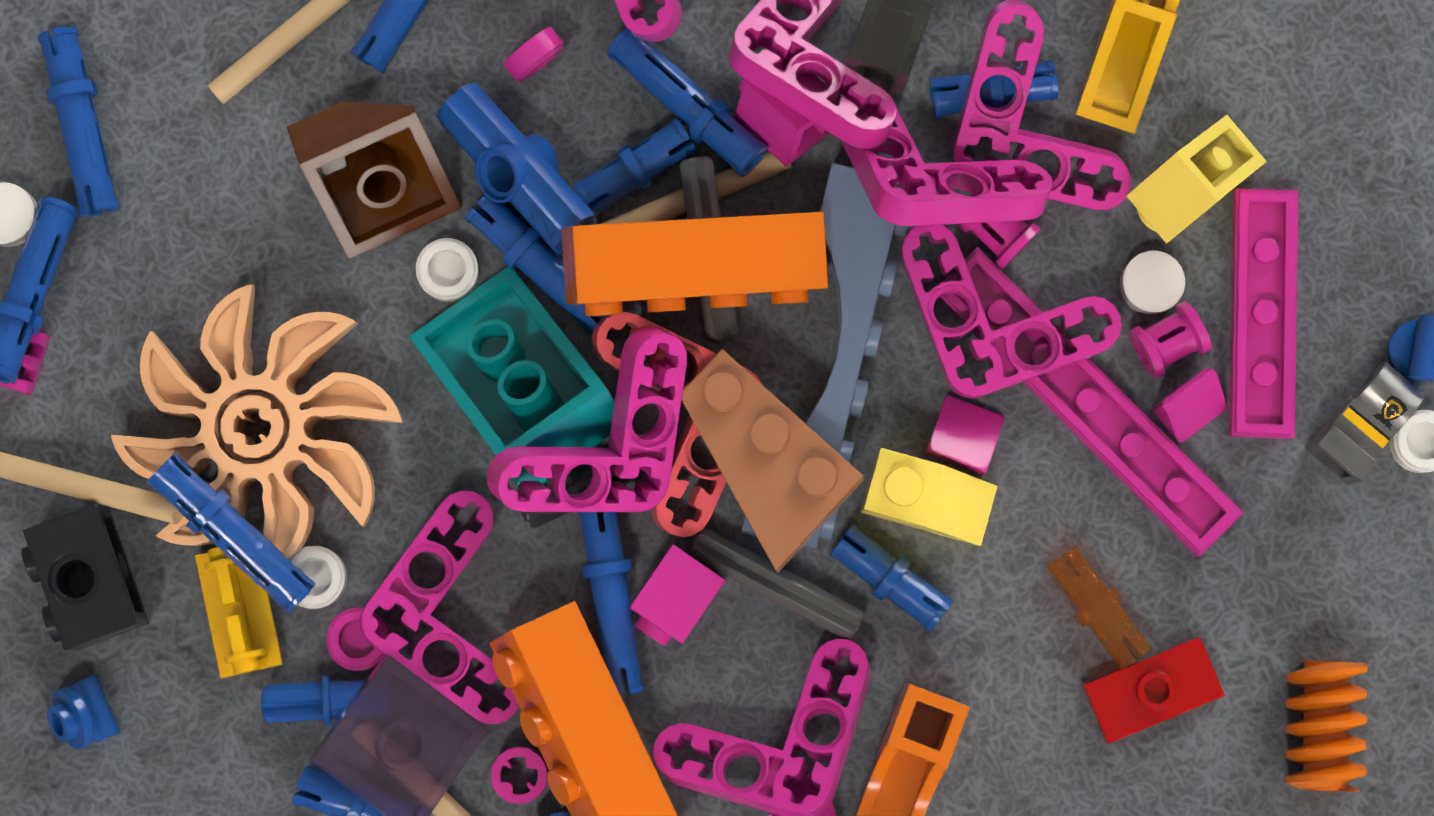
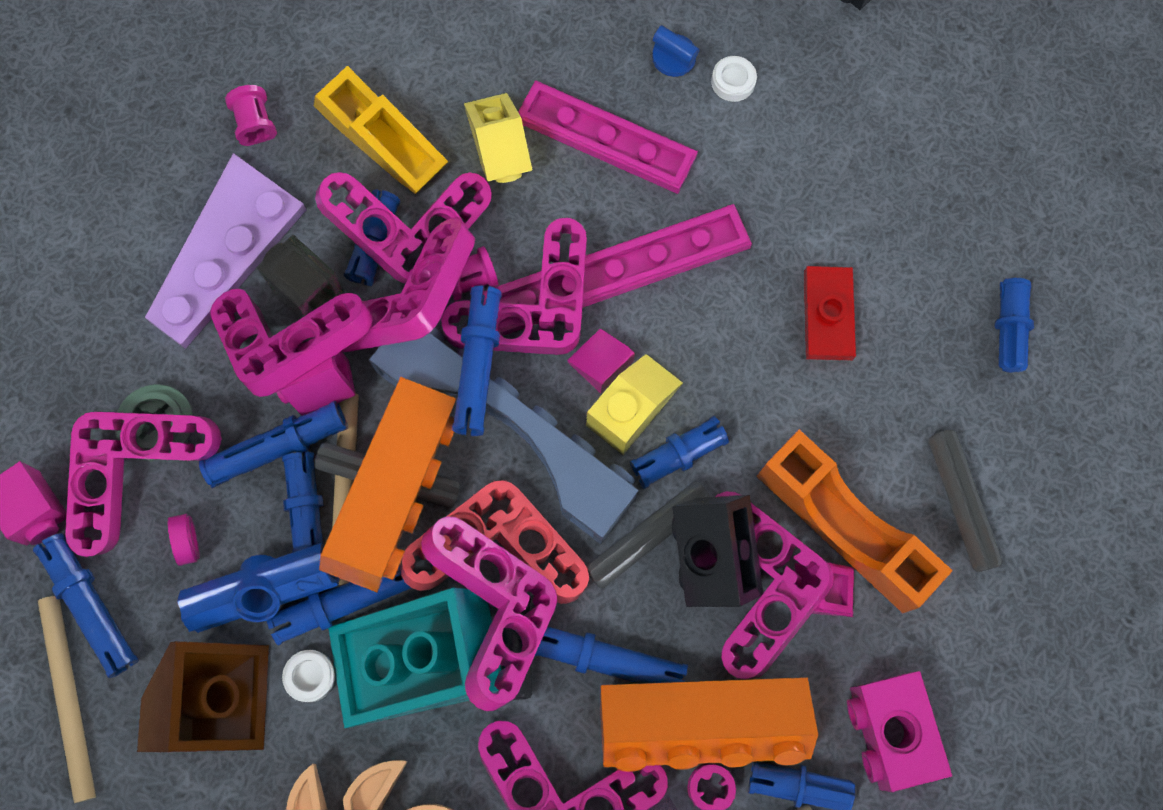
camera: 70 degrees left, 10 degrees down
(675, 597) = (629, 609): dark pink brick -> none
(769, 457) = (558, 493): nougat wing -> none
(785, 670) = (729, 527): none -> black brick
(885, 290) = (479, 340): none -> blue pin
(1098, 607) = (758, 323): clear orange pin -> none
(1152, 282) = (553, 195): white tile -> none
(1170, 339) = (598, 211): dark pink bush -> none
(1191, 405) = (645, 205): dark pink slope -> none
(1326, 726) = (900, 210): orange piece -> none
(1365, 424) = (709, 105): flat silver leg -> none

